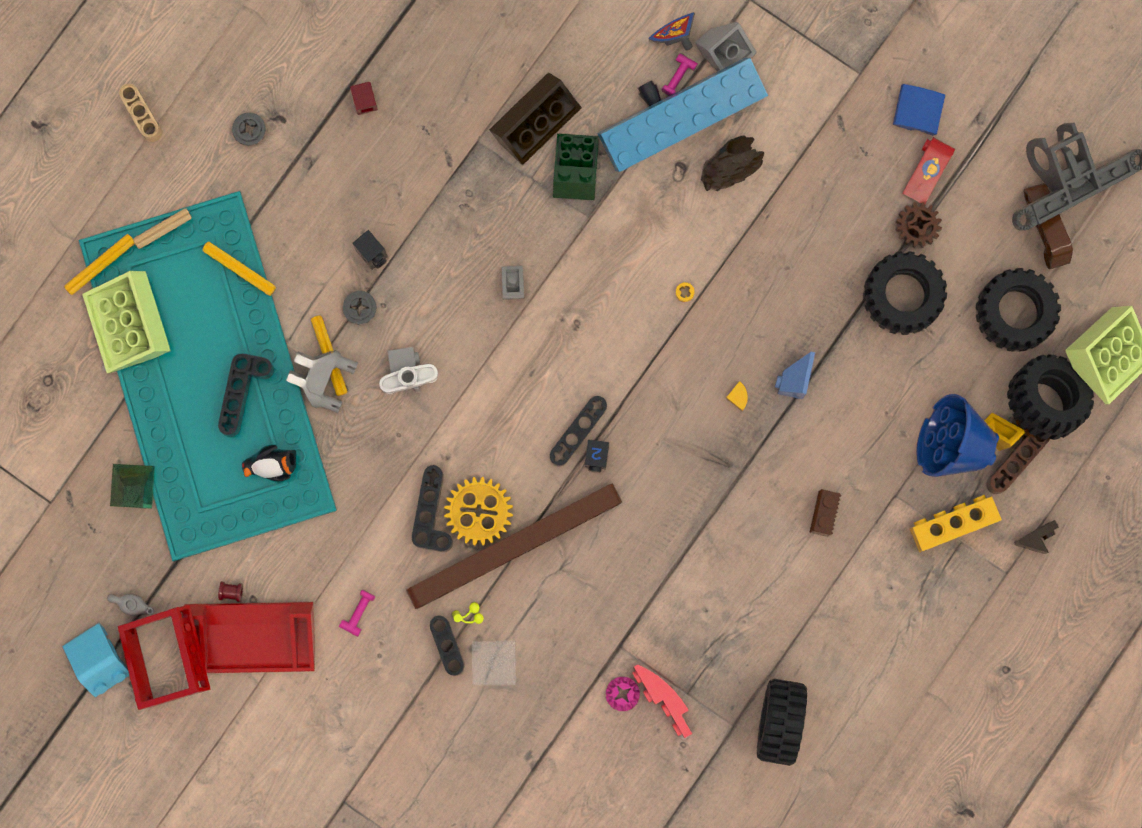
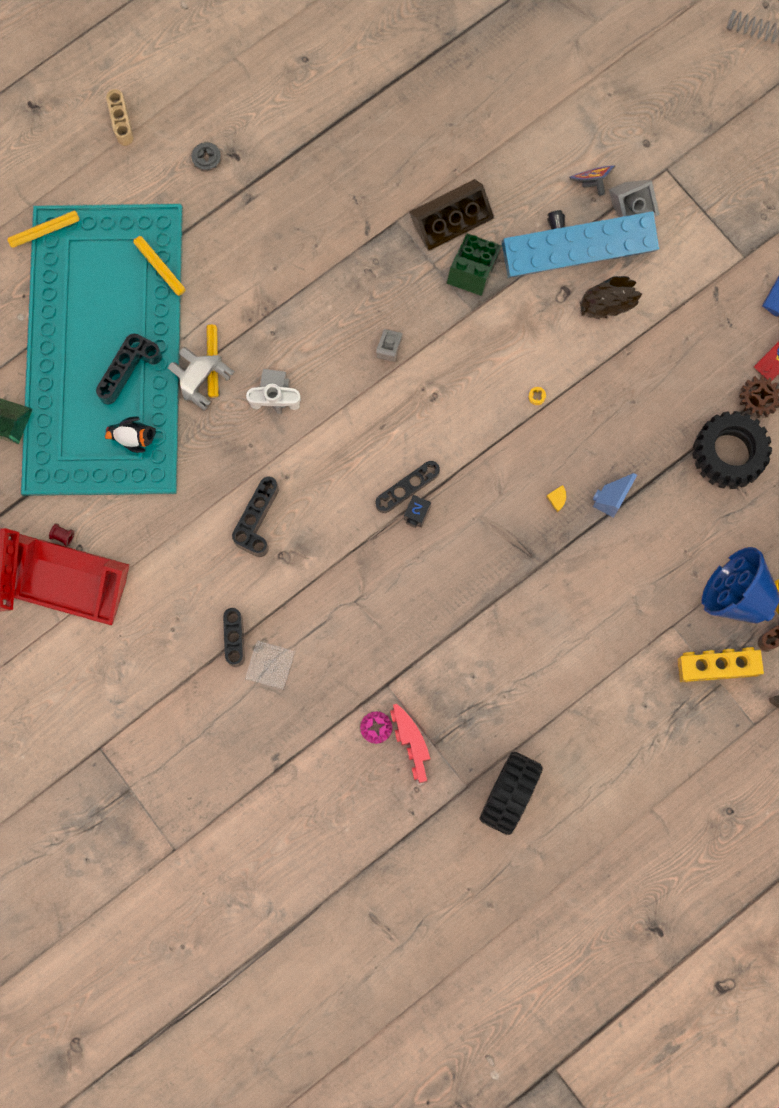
camera: 20 degrees right, 5 degrees down
(126, 321) = (49, 281): yellowish green slope -> none
(162, 228) = (106, 214): tan axle -> none
(351, 625) = (156, 596): dark pink piece -> none
(353, 300) = (247, 321): dark grey gear -> none
(363, 98) = (310, 157): dark red panel -> none
(370, 250) = (275, 281): black brick -> none
(473, 608) = (268, 612): neon yellow piece -> none
(481, 492) = (306, 514): yellow gear -> none
(514, 546) = (320, 568): reddish brown beam -> none
(685, 64) = (595, 205): dark pink piece -> none
(824, 513) = (605, 621): reddish brown brick -> none

